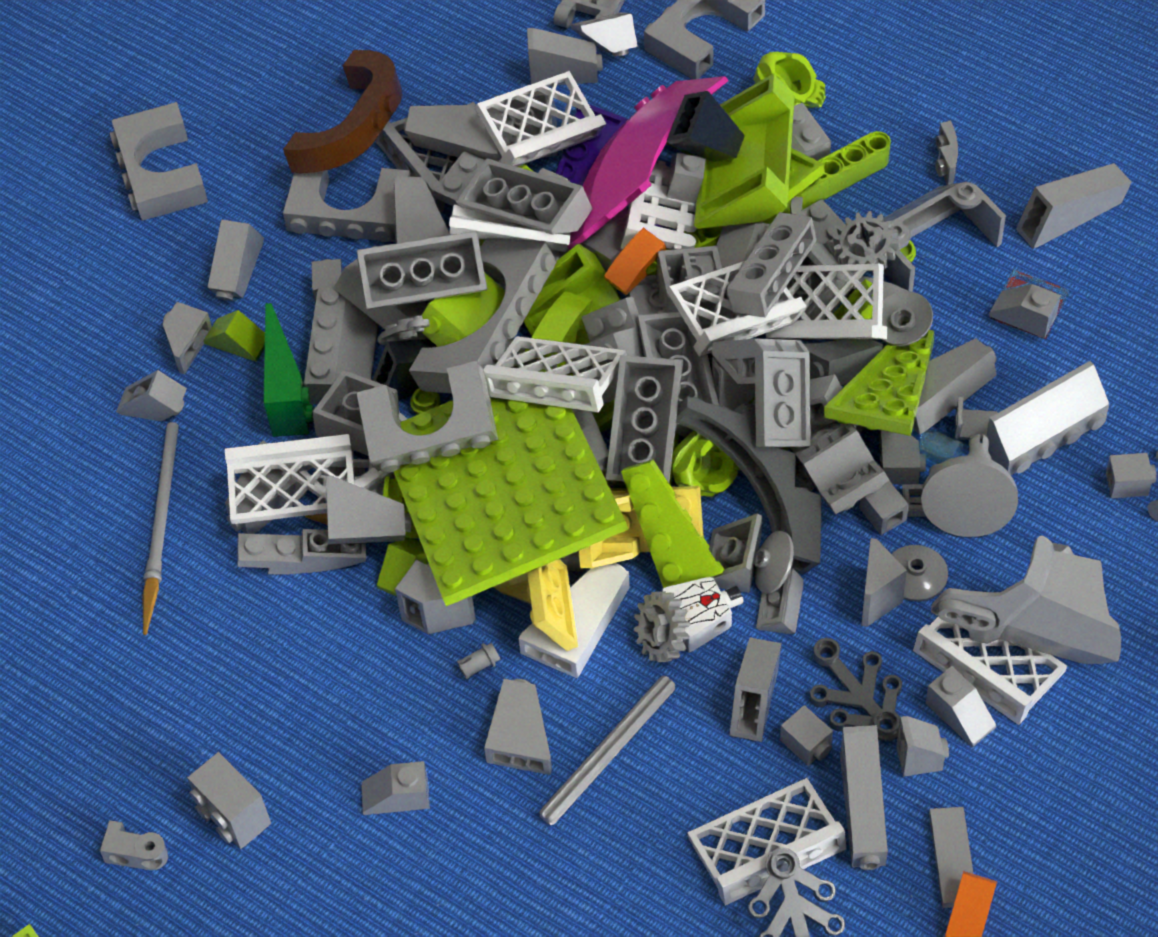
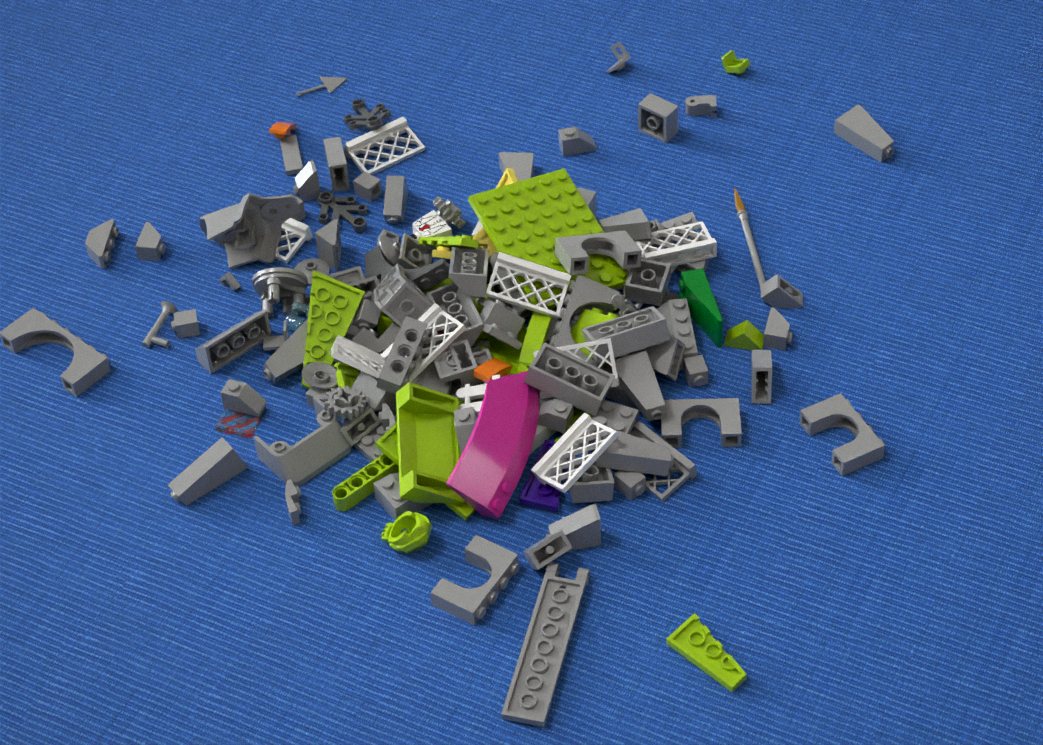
camera: 170 degrees right, 10 degrees down
(363, 124) = (700, 497): reddish brown arch -> none
(607, 750) = (471, 173): light grey axle -> none
(705, 129) = (456, 435): black slope -> none

